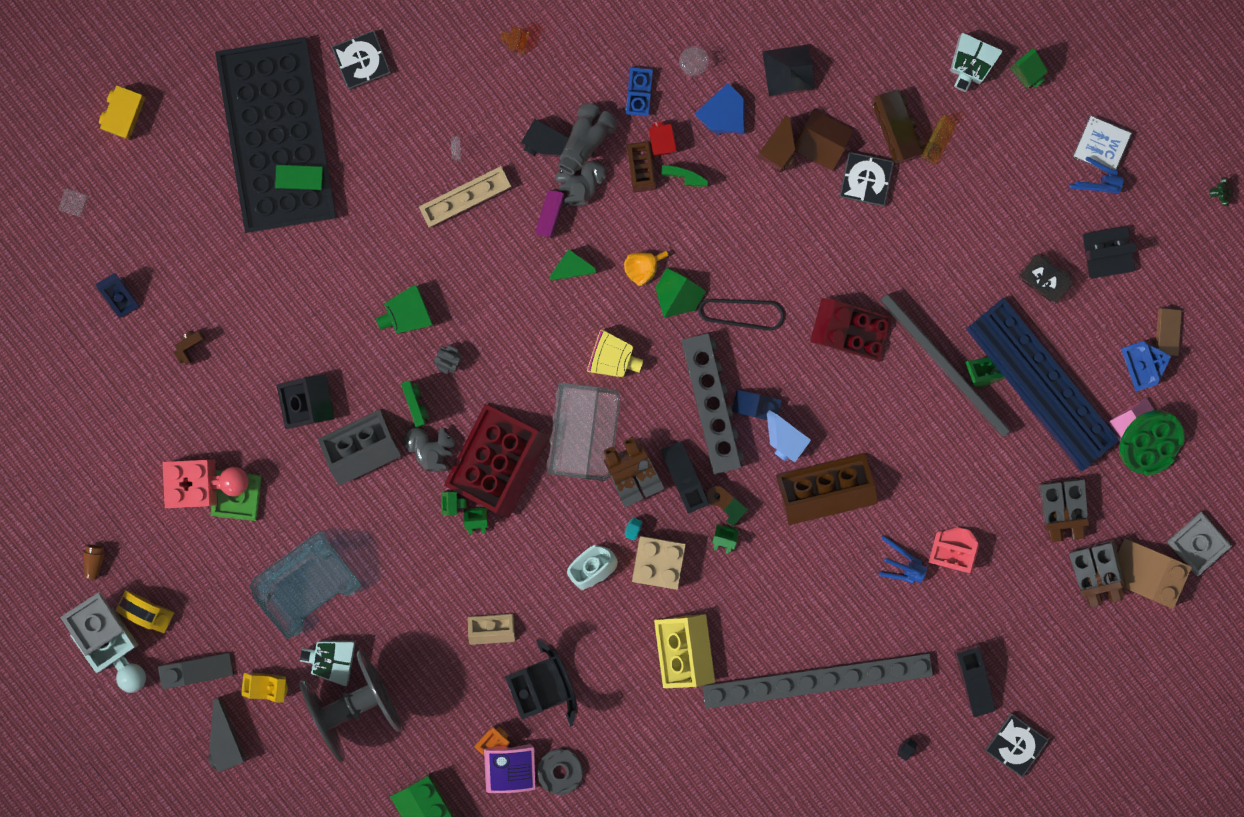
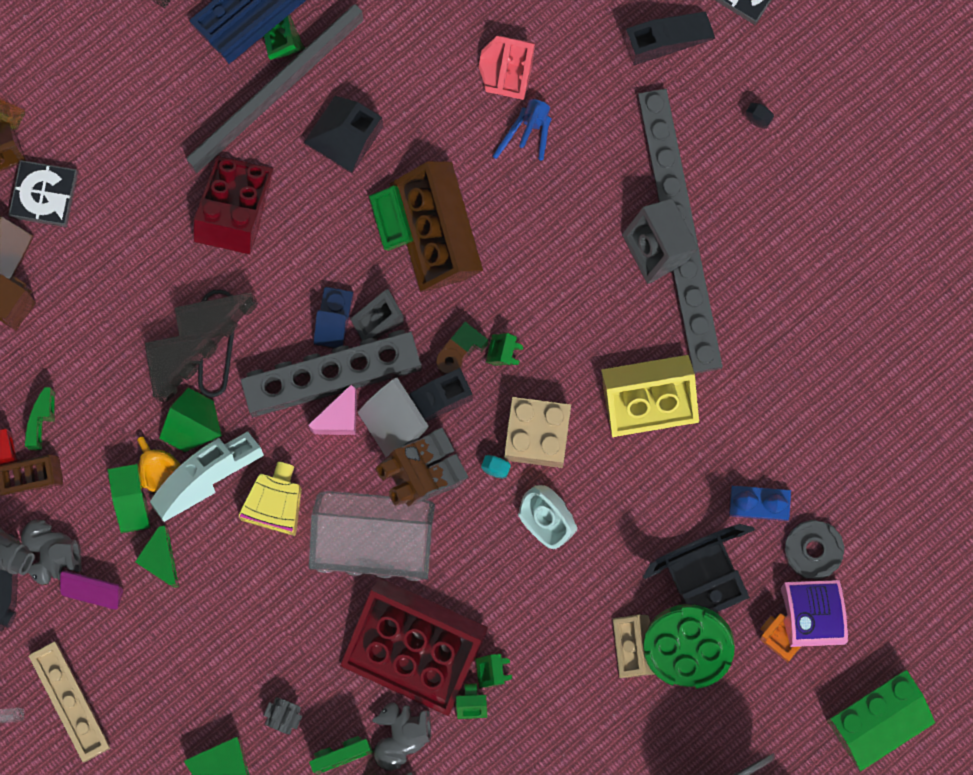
camera: 90 degrees left, 10 degrees down
(487, 671) = (689, 646): none -> green tile
(597, 731) = (760, 503): none -> blue tile
(618, 244) = (128, 498): none -> green slope
(634, 298) = (196, 476): none -> light aqua slope
(672, 450) = (392, 417): none -> light grey slope
(677, 409) = (339, 416): none -> bright pink slope
(748, 301) = (200, 330): none -> clear smoke slope
(754, 440) = (378, 317): none -> dark grey slope
(785, 438) = (371, 277): light blue slope -> none
(806, 665) = (659, 240): none -> dark grey slope
(835, 453) = (391, 218): none -> green tile
(905, 418) = (345, 132): none -> black slope

